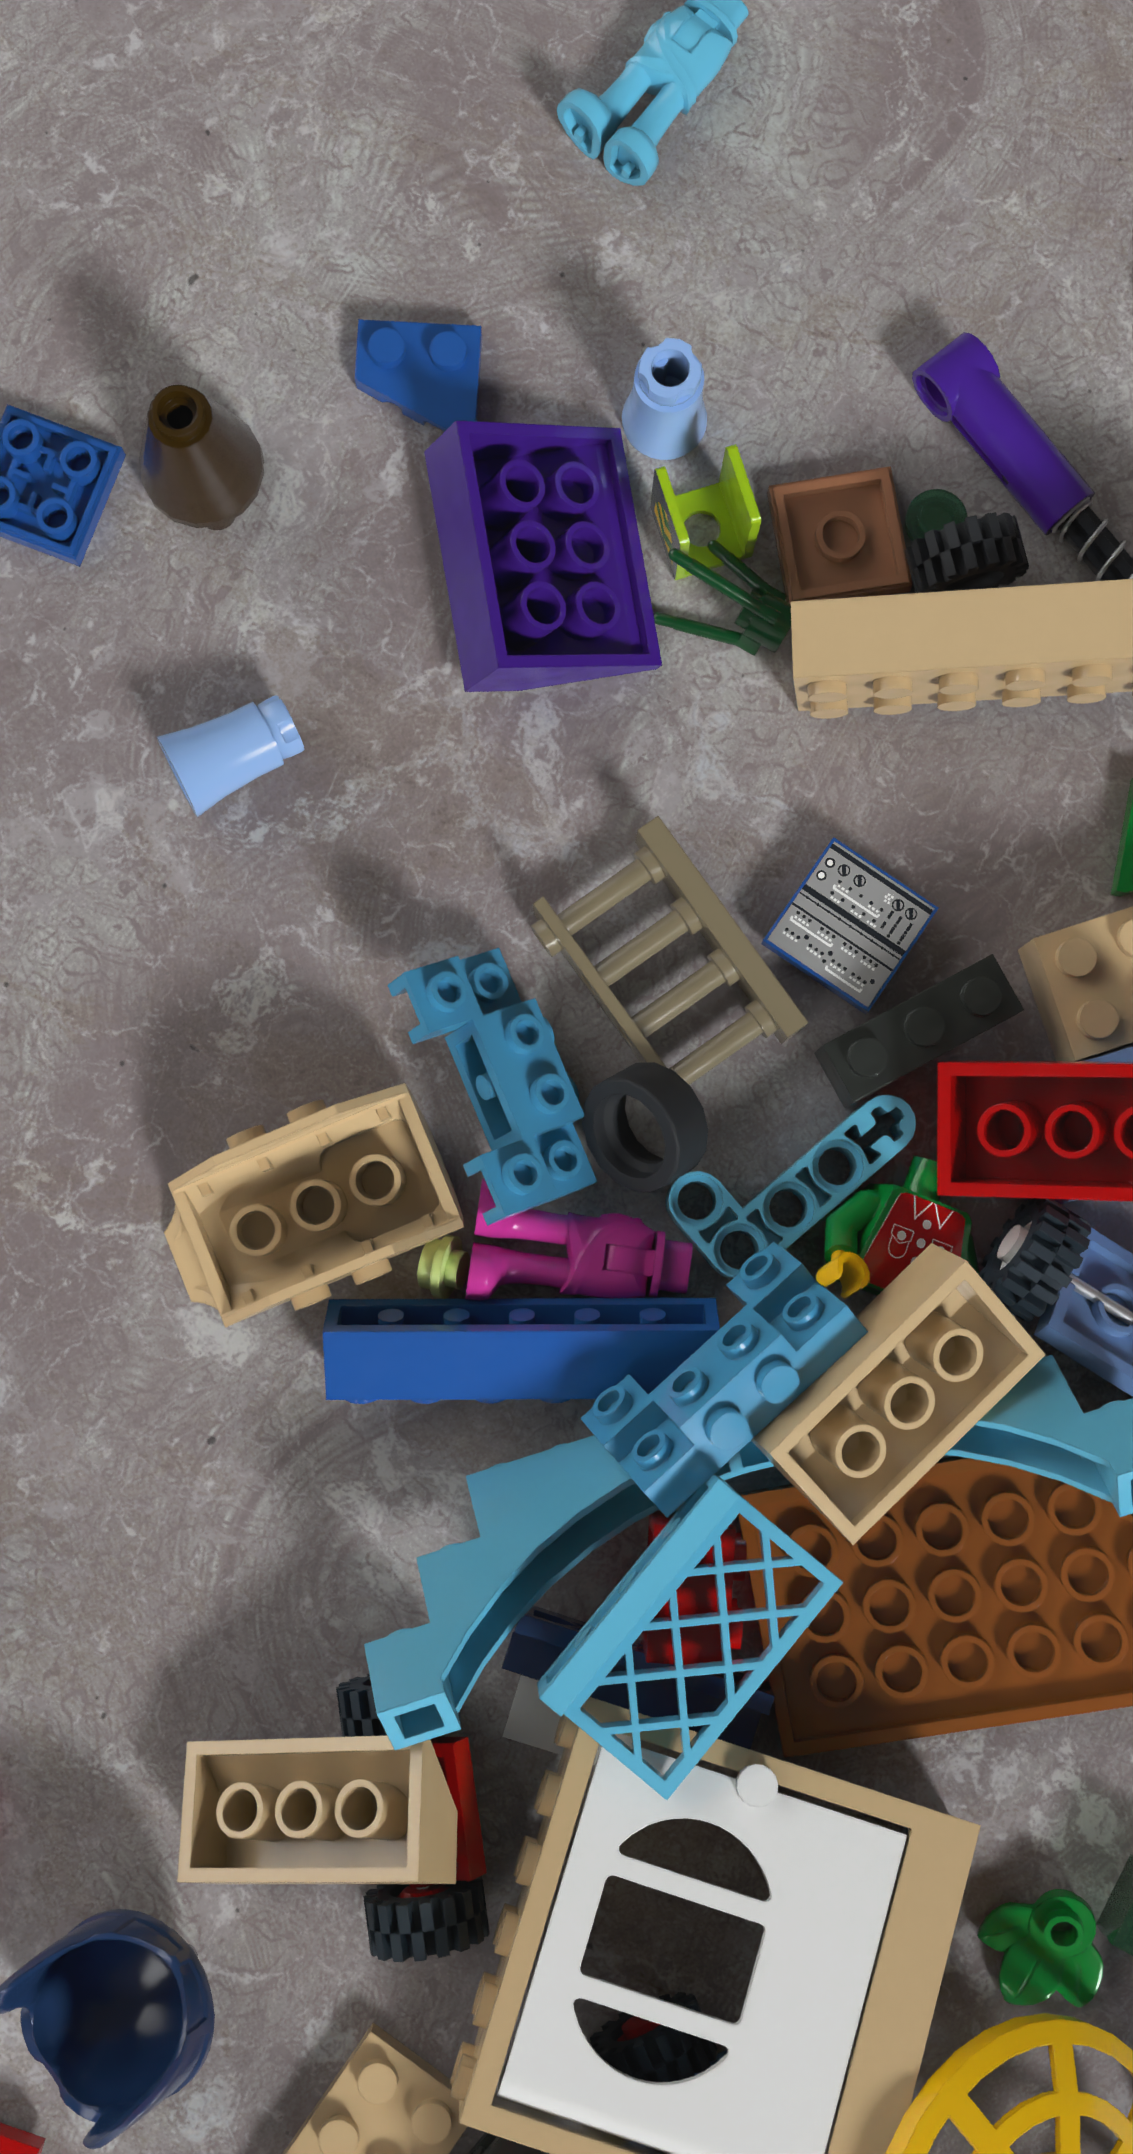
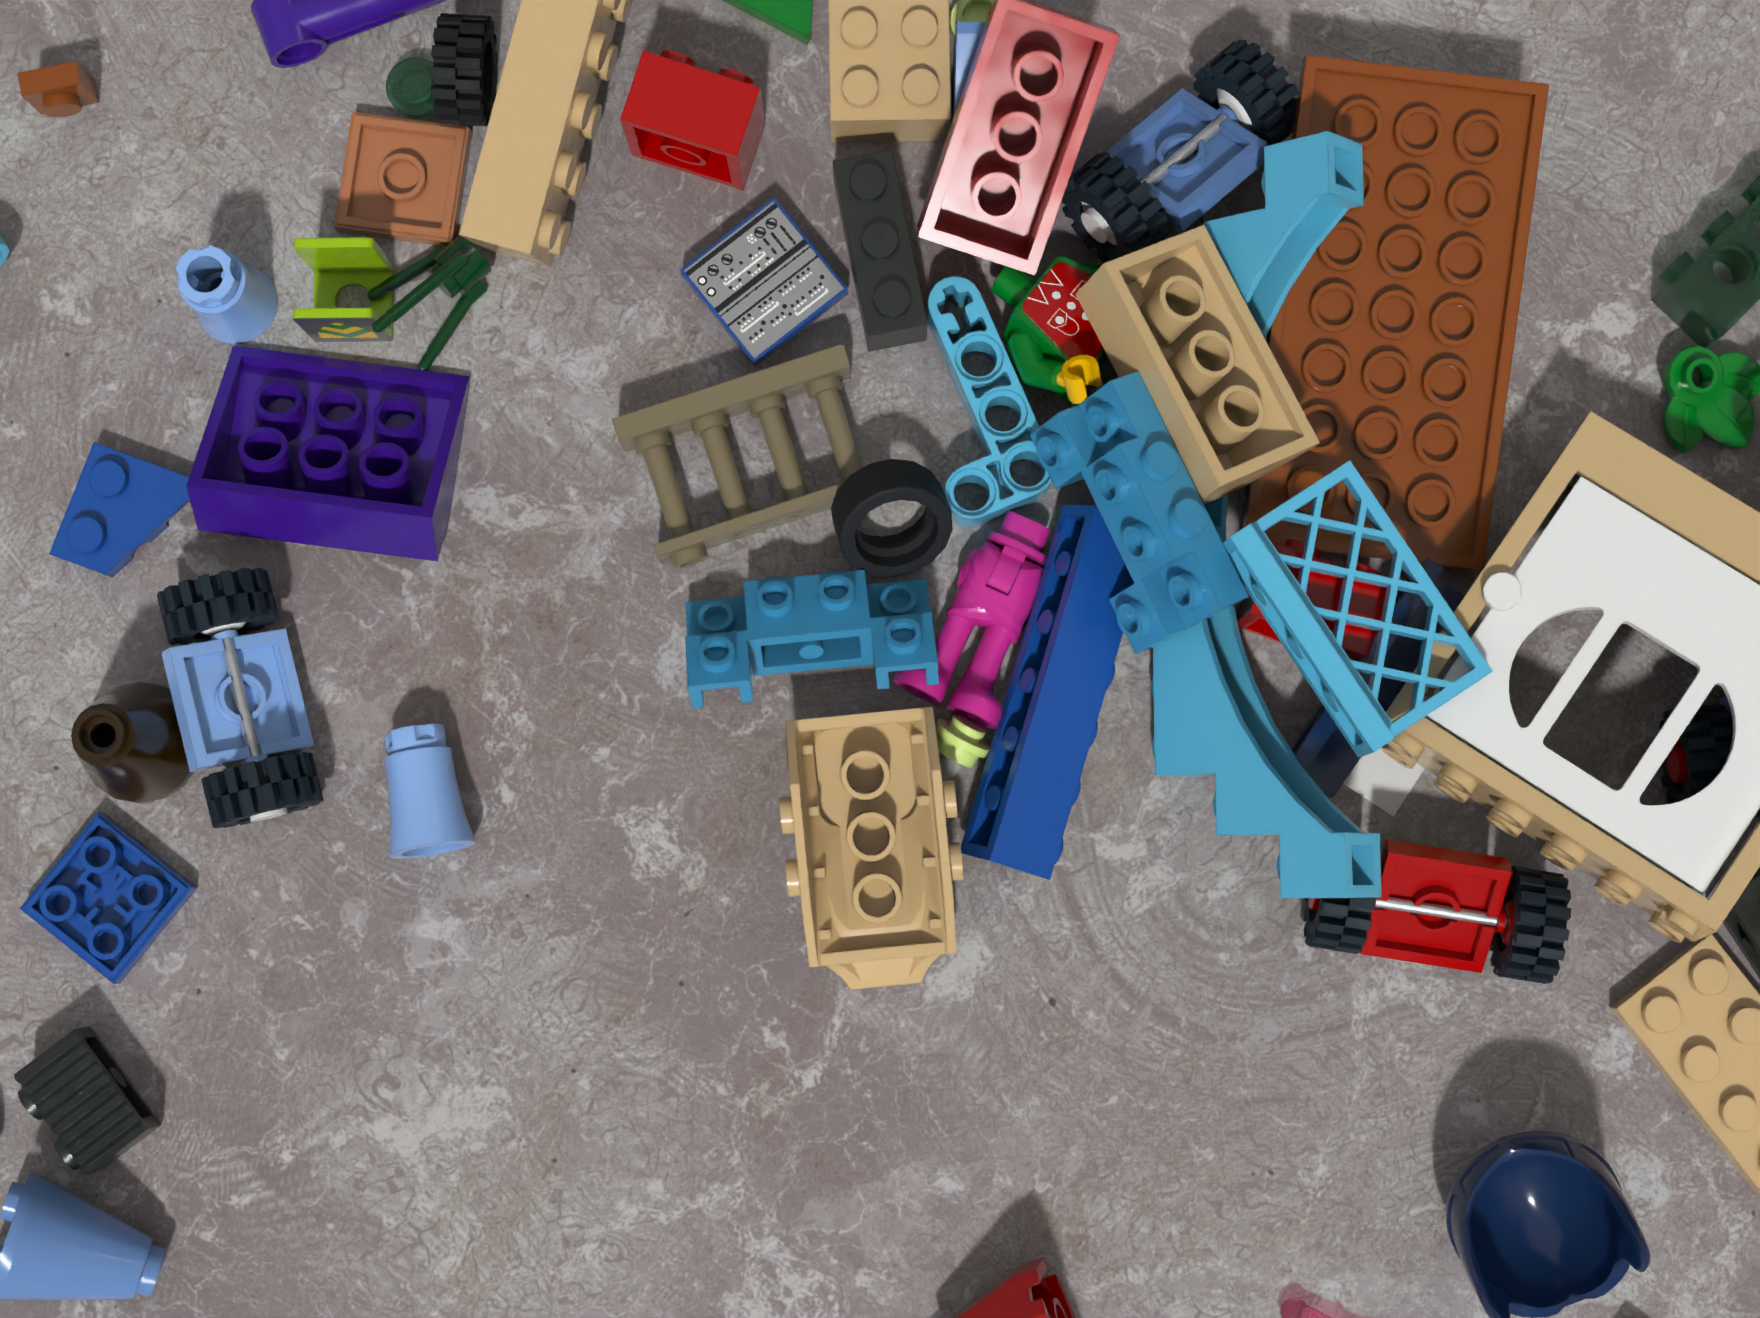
camera: 75 degrees left, 0 degrees up
(269, 541) = (238, 697): none -> plate
(316, 1813) = (1413, 993): tan slope -> none
(819, 178) = (58, 89): none -> dark orange plate
(992, 801) = (694, 118): none -> red brick

